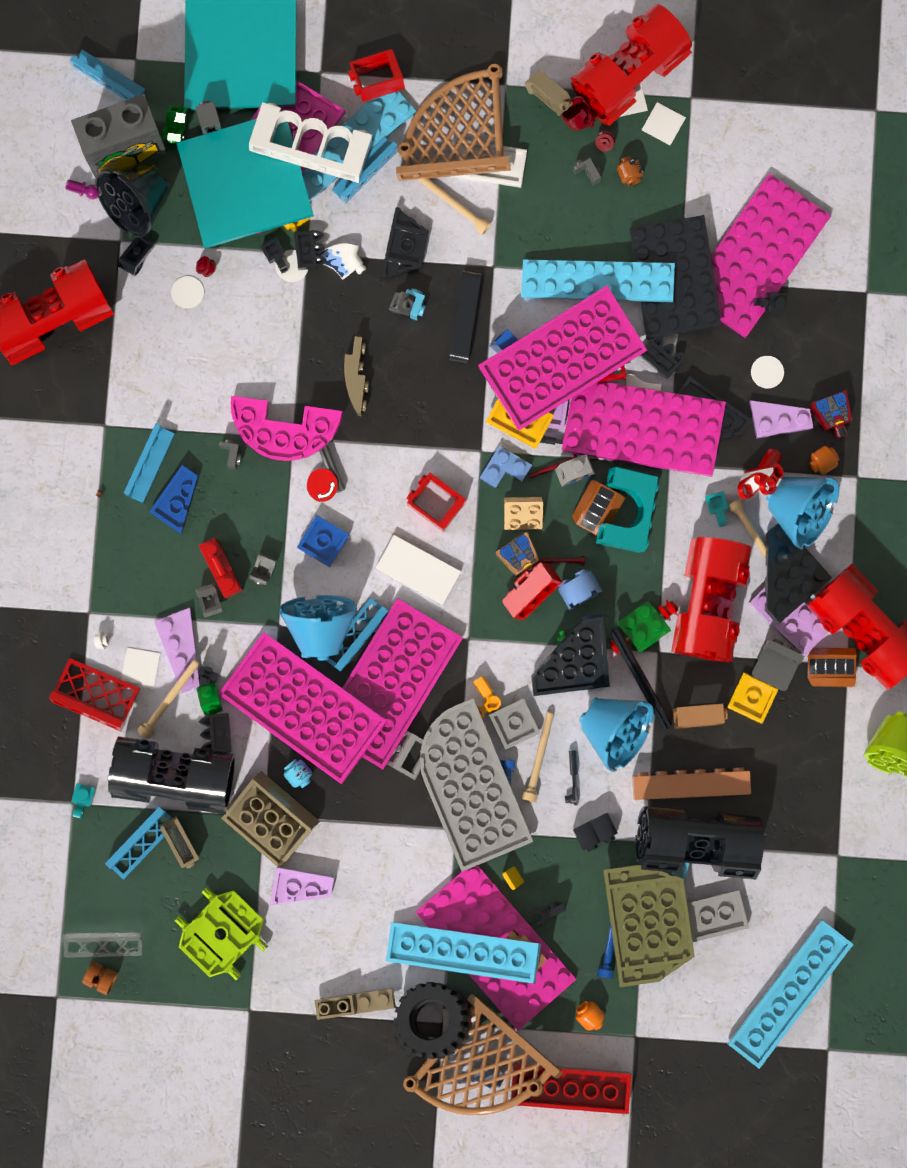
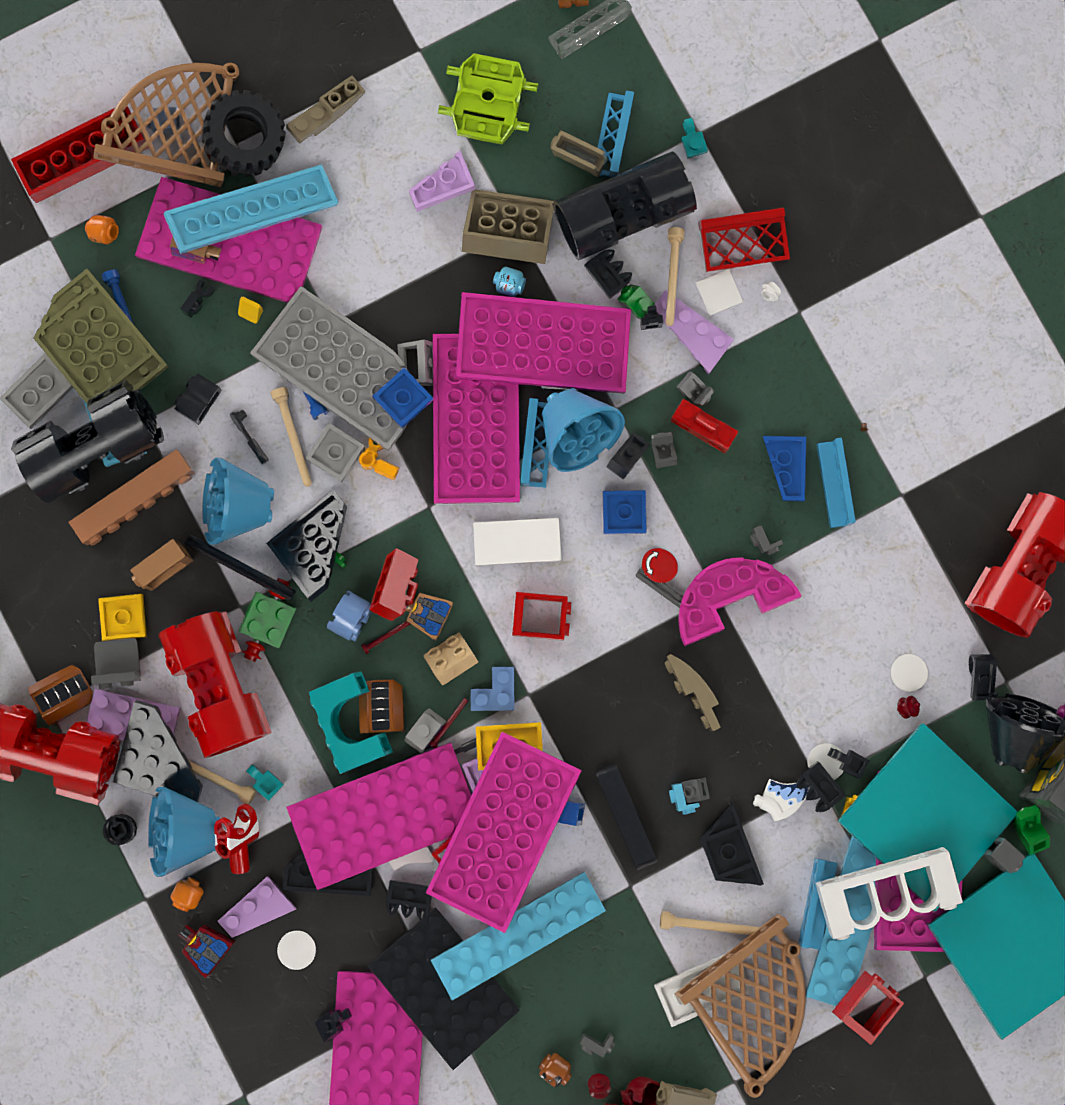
camera: 150 degrees right, 0 degrees up
(292, 581) = (628, 455): none -> black plate
(437, 729) = (403, 398): none -> blue plate
(846, 538) = (119, 829): none -> black wheel

